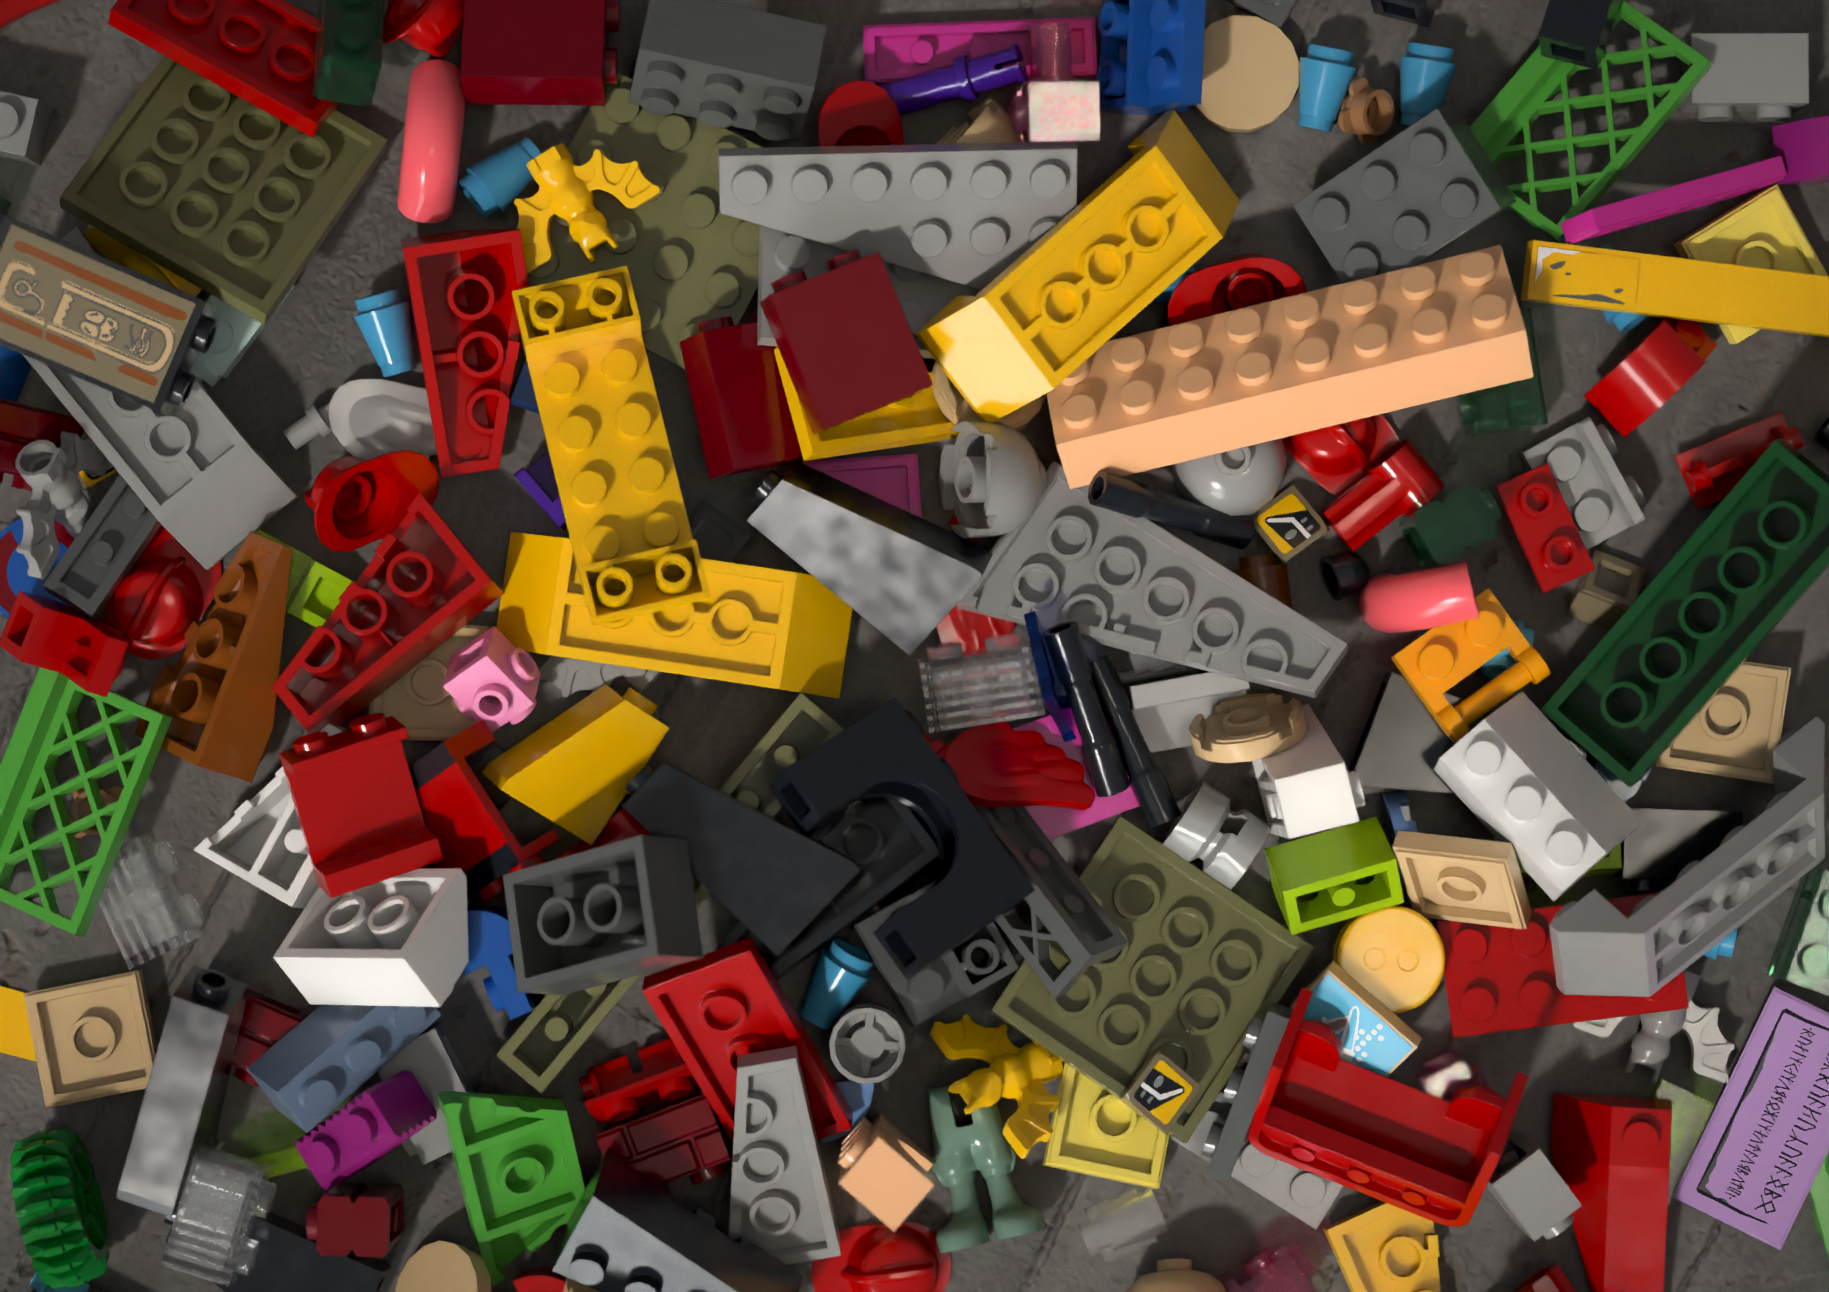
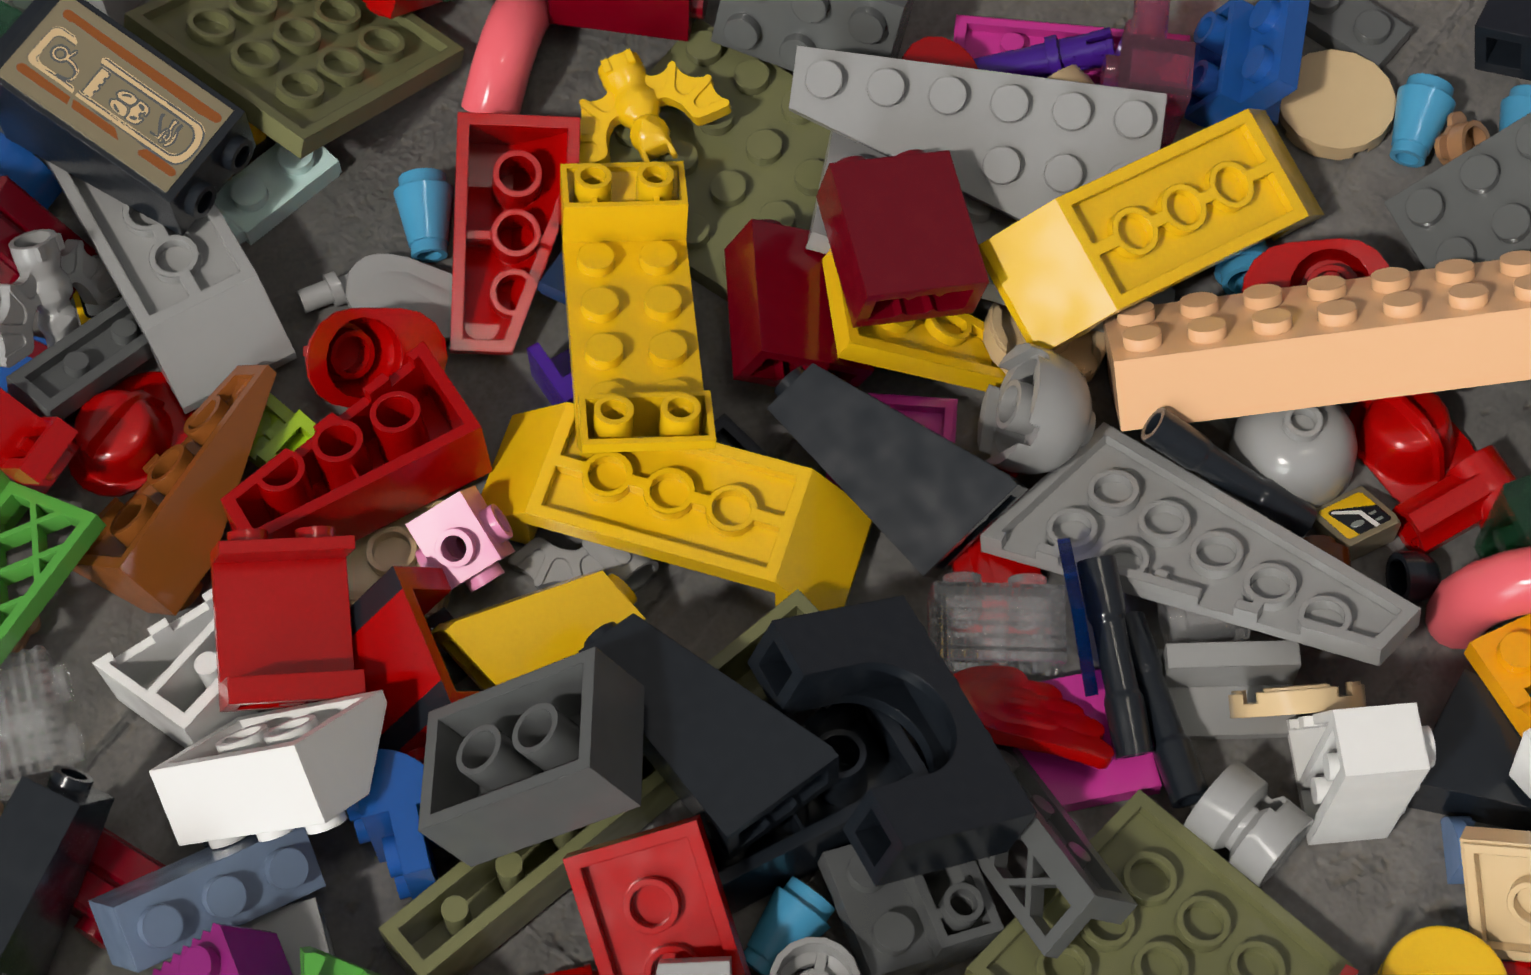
camera: 10 degrees right, 25 degrees down
(498, 178) = (560, 92): dark azure cone -> none
(1334, 875) = (1384, 883): lime brick -> none

